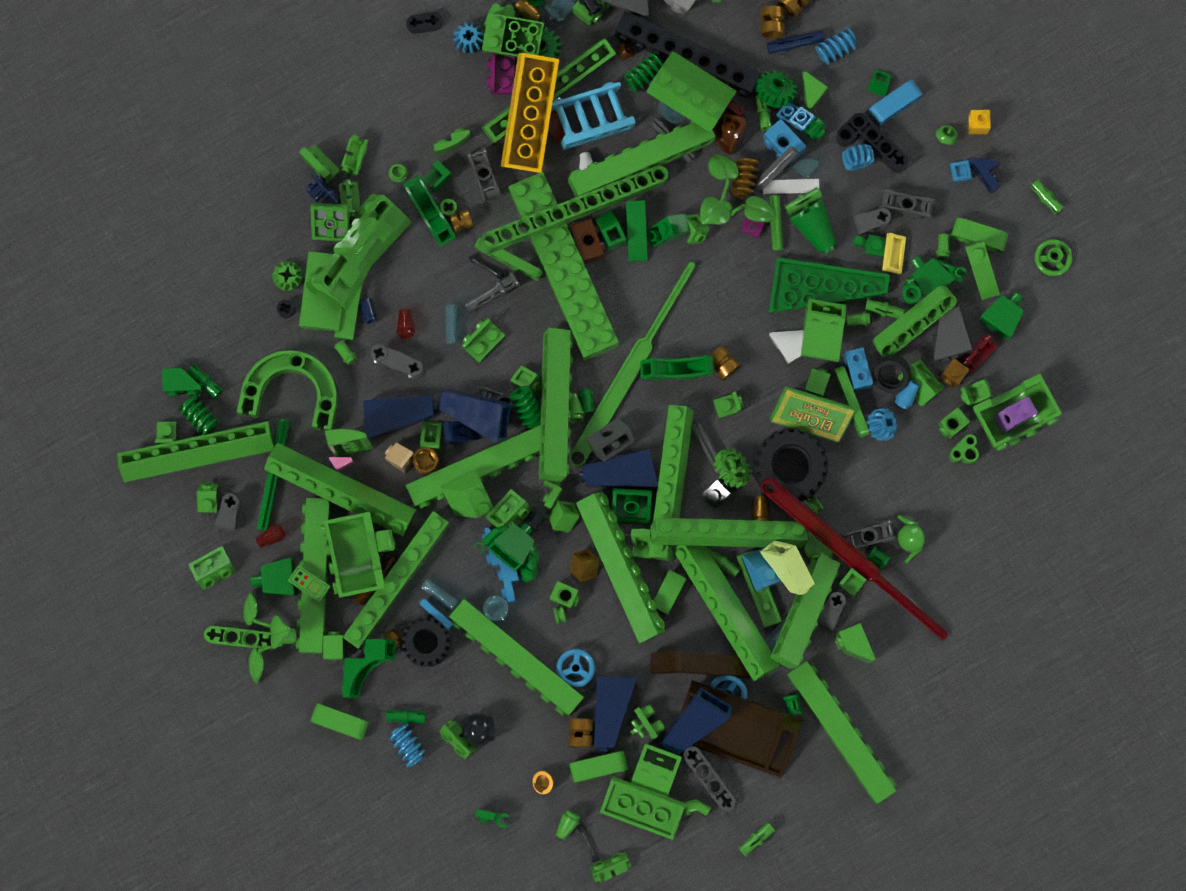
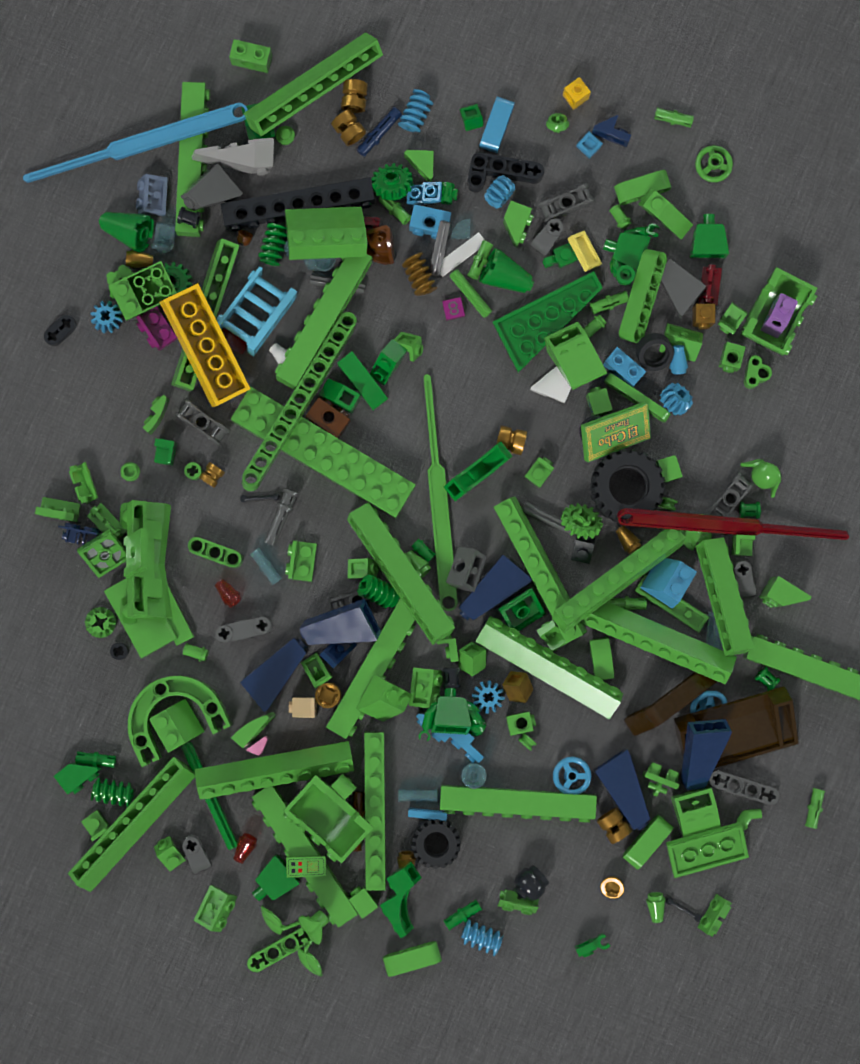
camera: 45 degrees left, 5 degrees up
(288, 399) = (176, 725): none -> bright green slope
(368, 311) = (189, 604): dark blue pin -> none
(412, 278) = (207, 547): none -> bright green beam
(429, 211) = (180, 486): green arch -> none
(513, 262) = (279, 478): bright green beam -> none
(550, 561) = (486, 690): none -> dark azure gear
(719, 212) = (420, 317): bright green plant -> none
(788, 566) = (688, 571): yellowish green slope -> none
(835, 477) = (670, 468): none -> bright green panel
(856, 189) = (515, 221): none -> bright green slope

